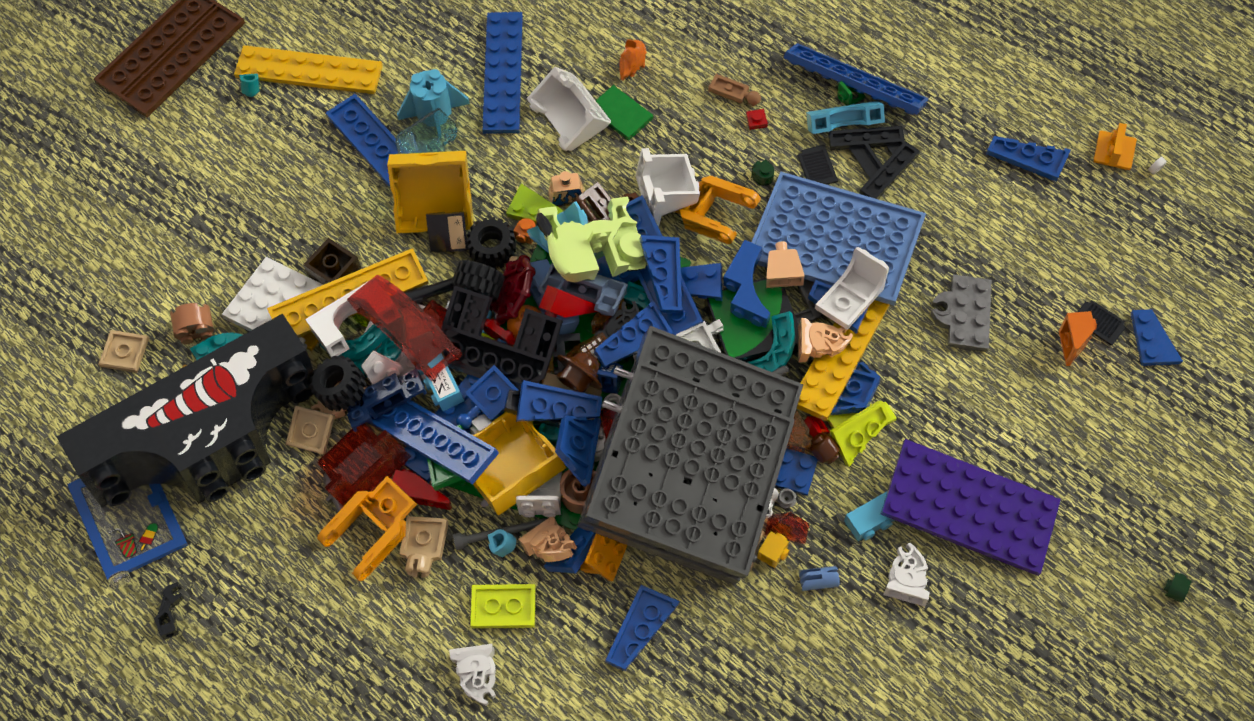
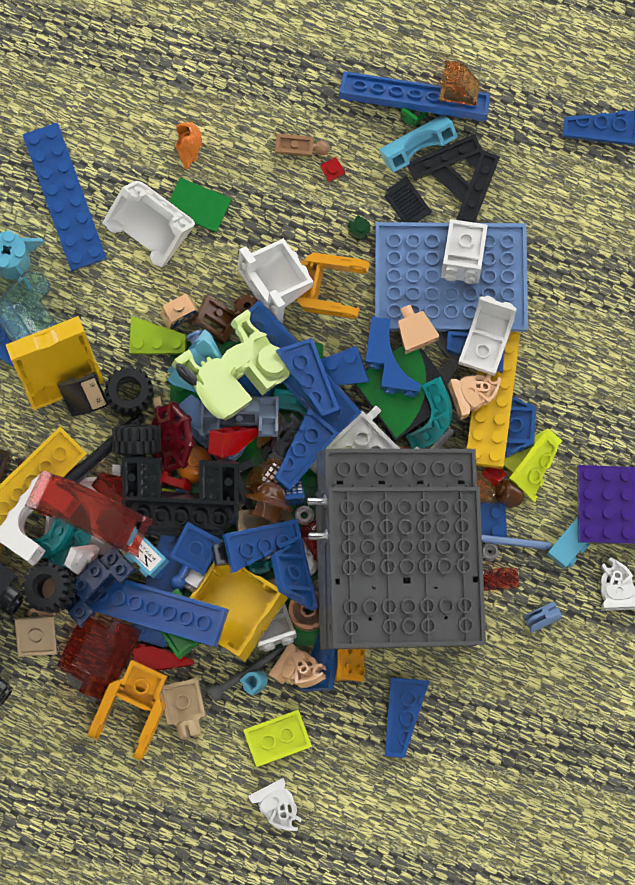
camera: 25 degrees left, 15 degrees up
(521, 228) = (155, 366): orange plate -> none
(773, 549) = (495, 603): yellow brick -> none
(813, 495) = (516, 542): none -> medium blue bar
(855, 216) = (464, 251): none -> white bracket
(900, 78) = (459, 84): none -> clear orange slope
(966, 312) = (592, 313): flat silver plate -> none

